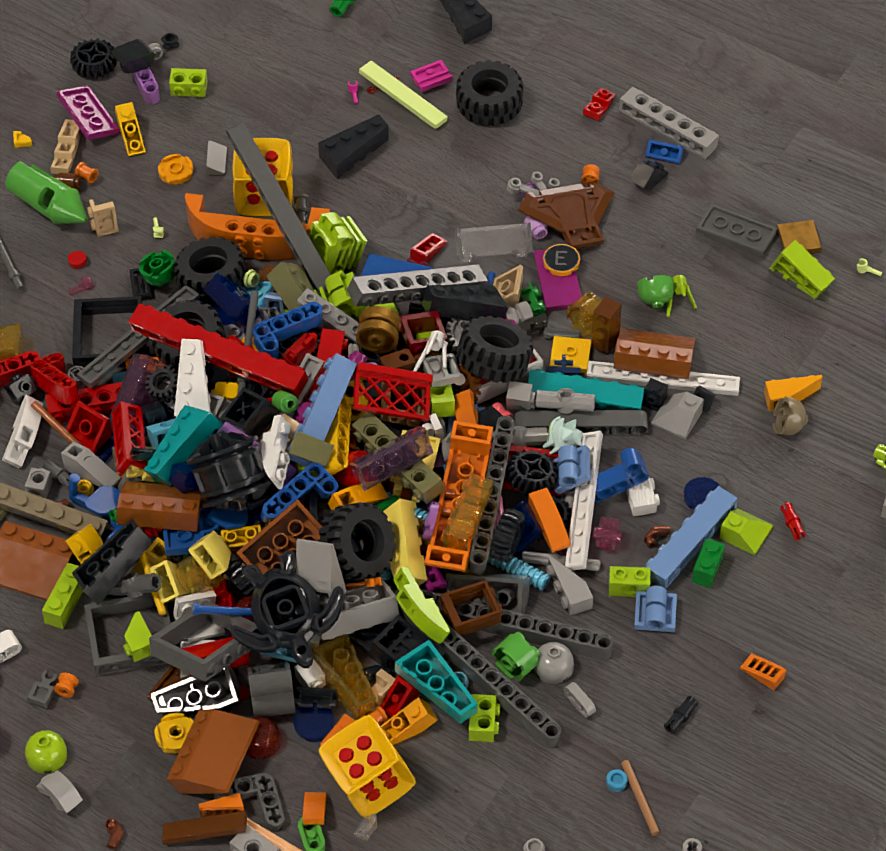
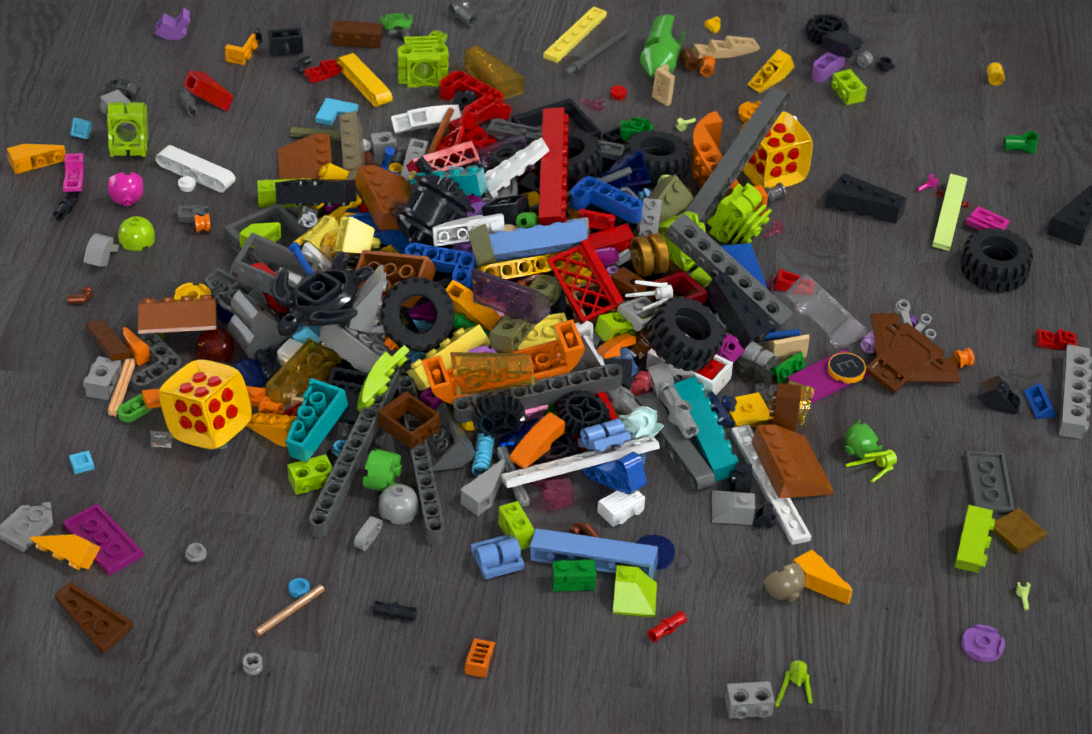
camera: 60 degrees right, 10 degrees down
(88, 112) = (767, 43): magenta tile -> none

